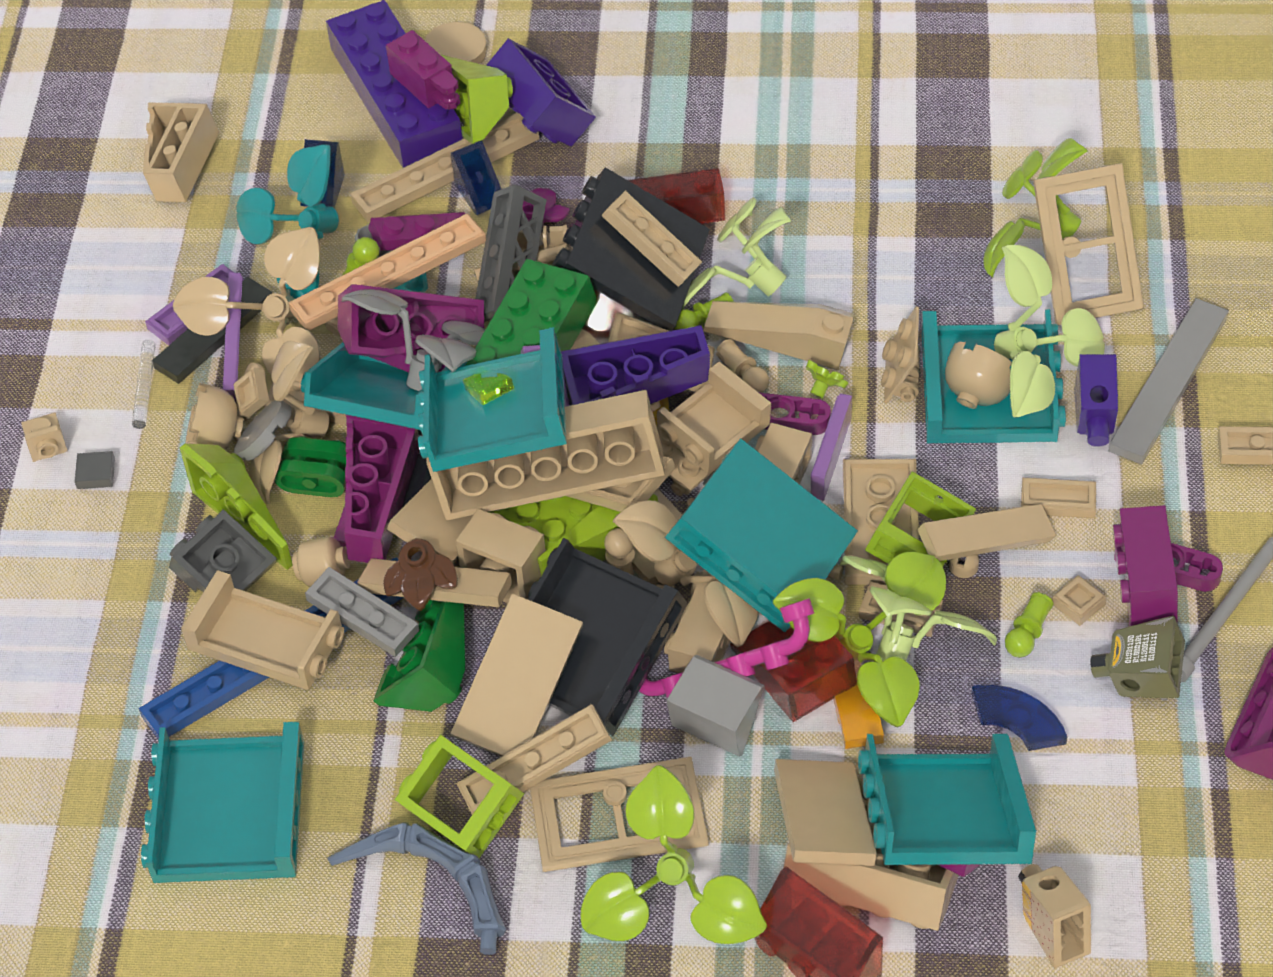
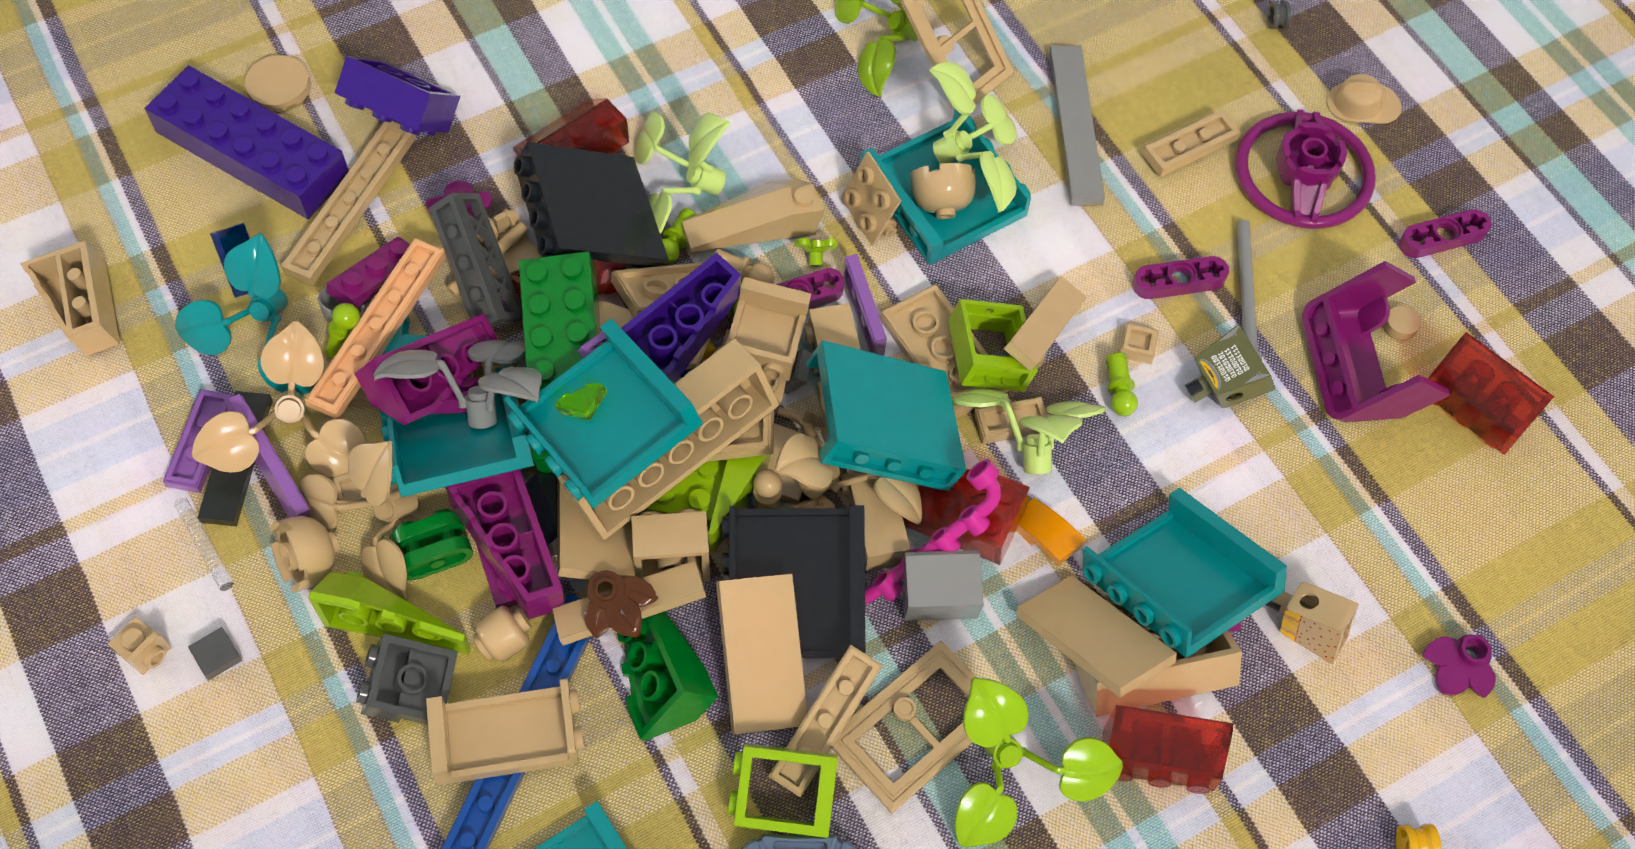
camera: 40 degrees left, 10 degrees up
(251, 392) = (329, 504): tan tile -> none
(261, 430) = (363, 537): light grey tile -> none
(362, 611) = (579, 663): light grey plate -> none
(422, 71) = (285, 120): magenta hinge -> none
(475, 176) = (390, 200): clear blue slope -> none
(482, 97) = (343, 118): lime wedge -> none
(651, 238) = (607, 190): tan plate -> none
(885, 685) = (1061, 492): lime plant -> none
(1020, 714) = (1163, 463): clear blue tile -> none
(1060, 497) = (1065, 261): tan tile -> none
(1096, 397) = (1043, 165): dark purple torso -> none
(1146, 564) = (1186, 293): magenta wedge -> none

